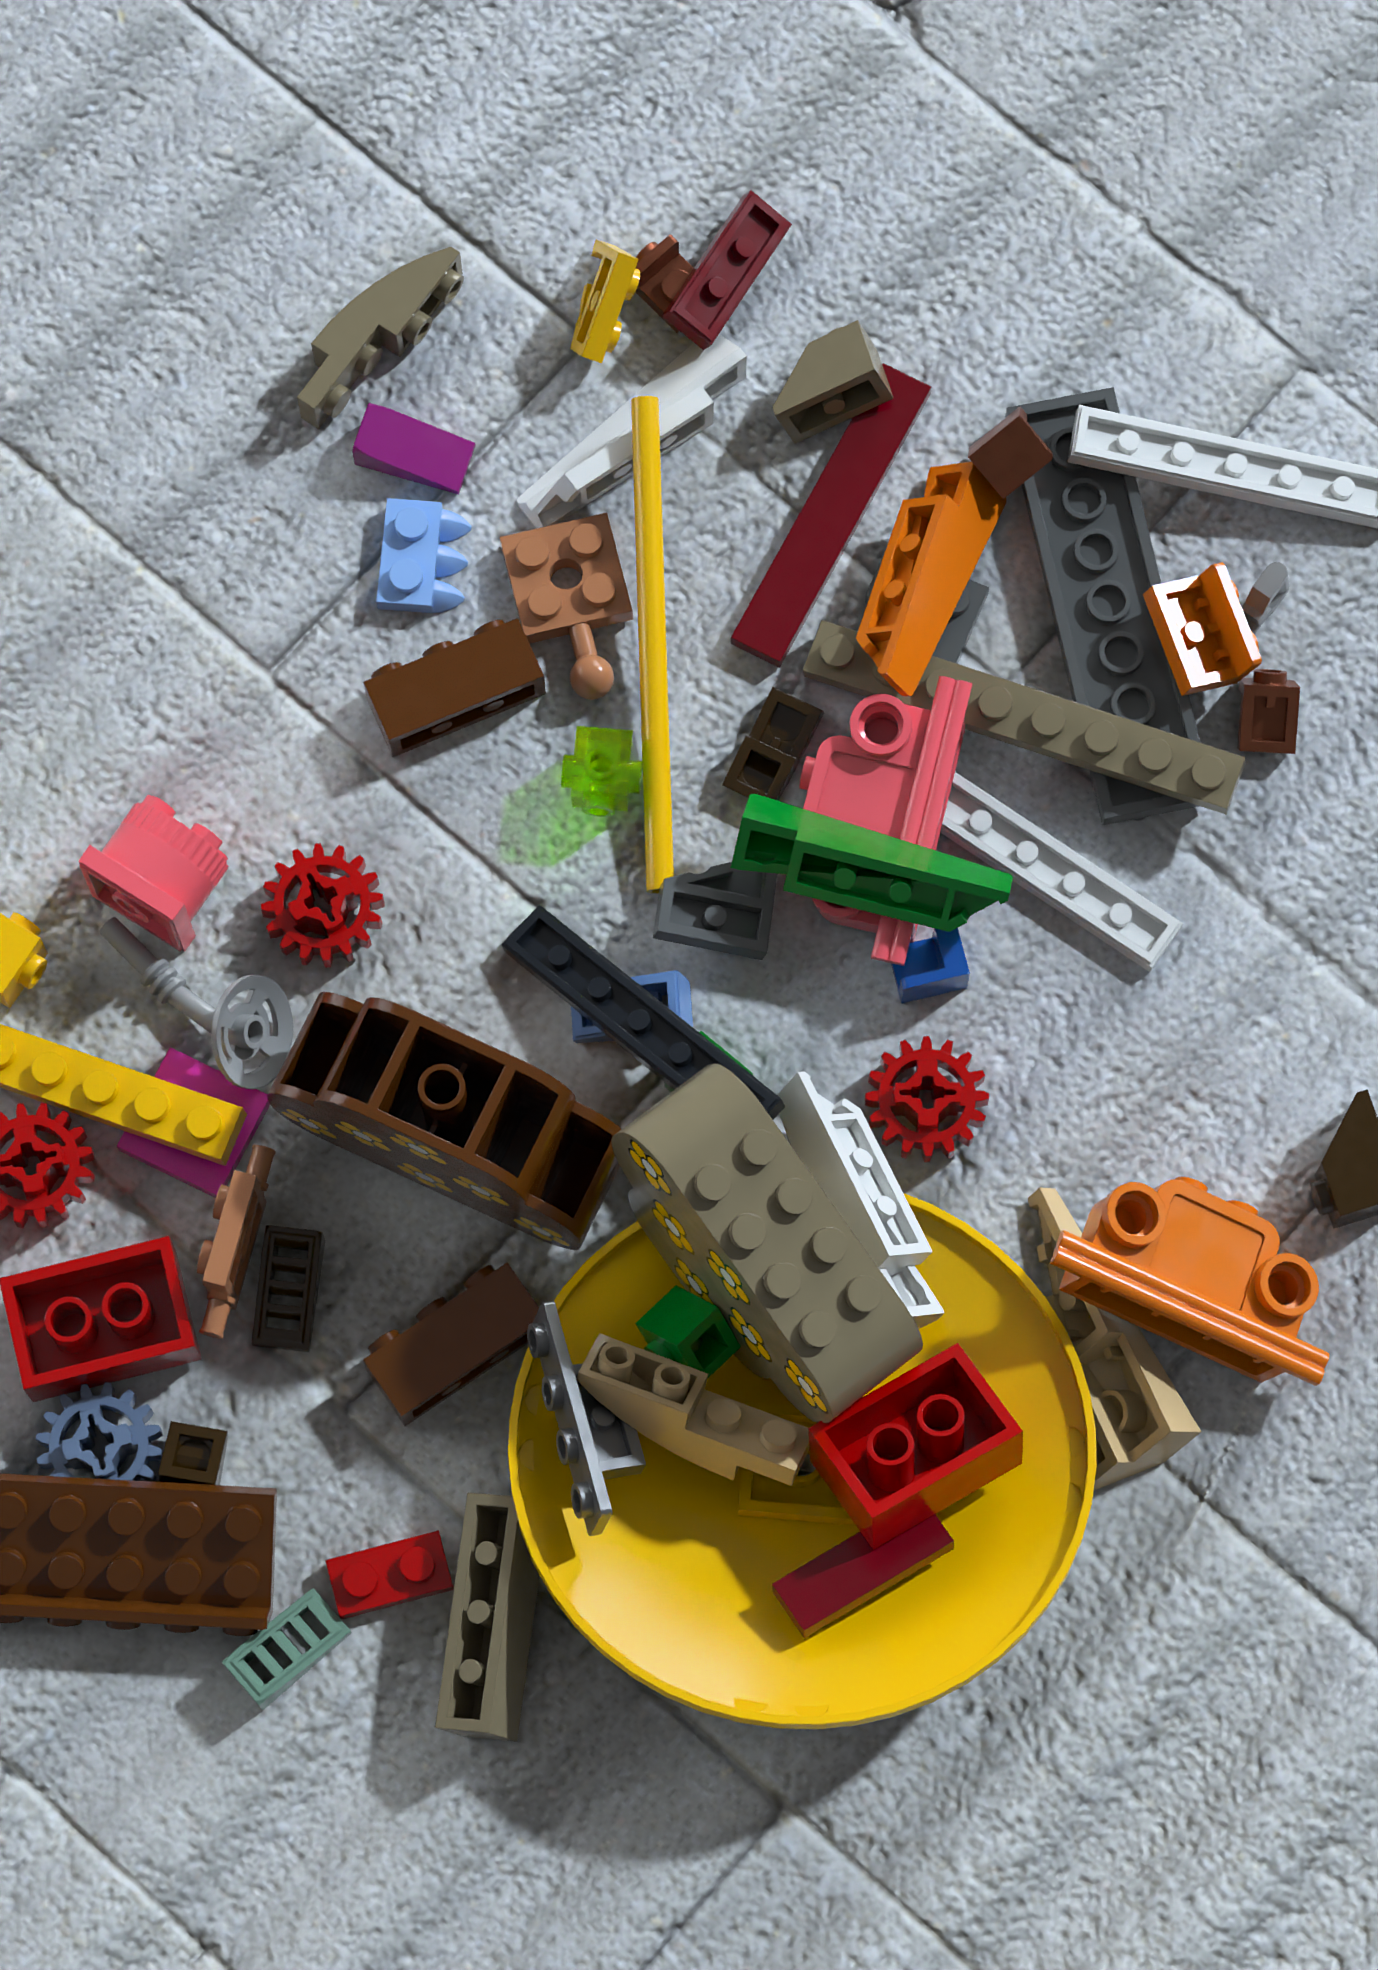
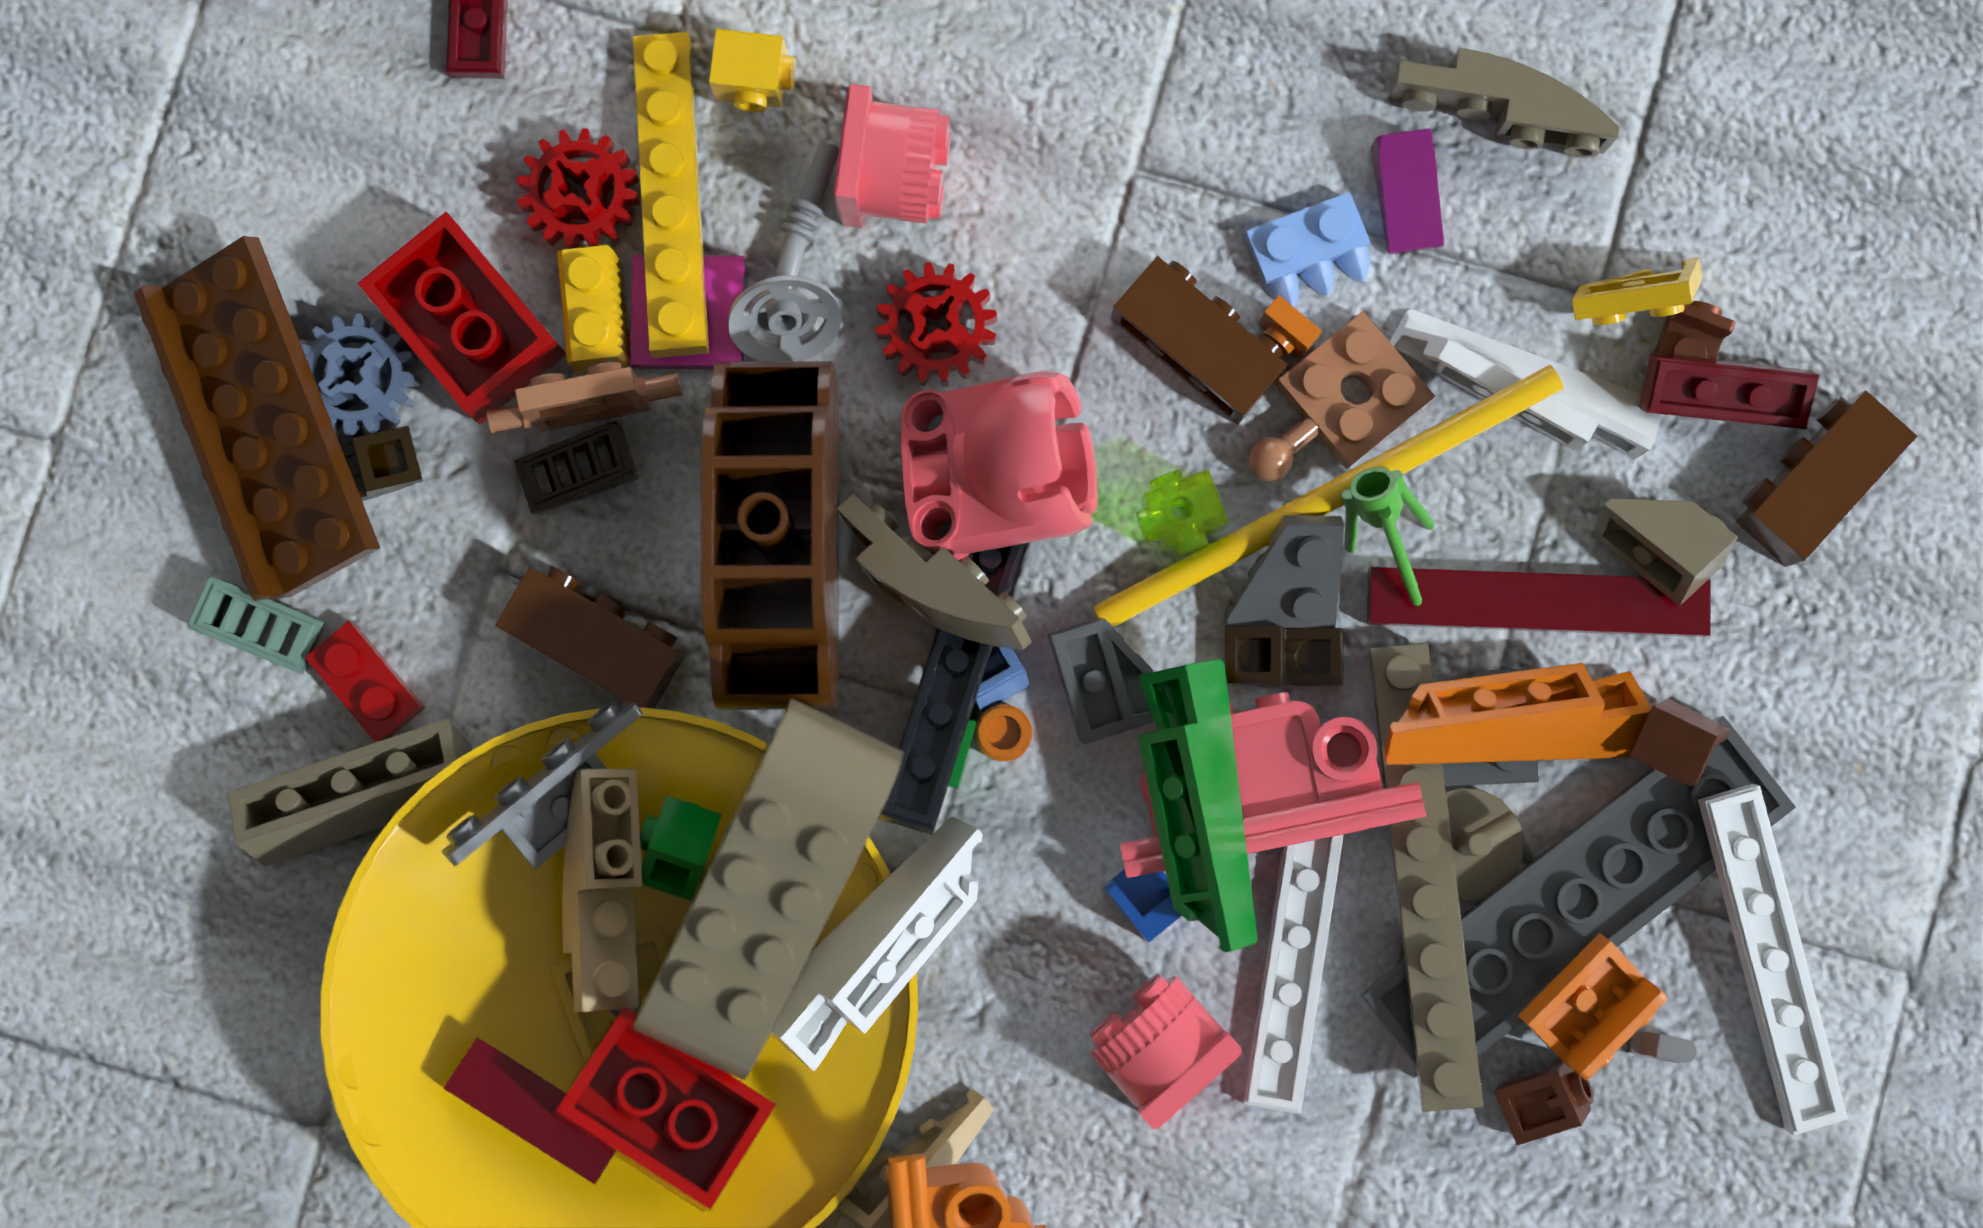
camera: 65 degrees right, 10 degrees up
(151, 1200) = (593, 307): none -> yellow brick
(480, 905) = (997, 464): none -> coral piece
(483, 604) = (1289, 328): none -> orange plate
(573, 1000) = (933, 588): none -> dark tan slope
(677, 595) = (1378, 500): none -> bright green plant
(708, 702) = (1294, 578): none -> dark grey wing
(723, 1020) = (1003, 733): none -> orange tile
(841, 229) = (1824, 477): none -> reddish brown brick
(905, 1101) = (992, 967): red gear -> none
(1019, 655) = (1484, 841): none -> dark tan shield
(1068, 1004) = (1162, 1049): none -> coral piece

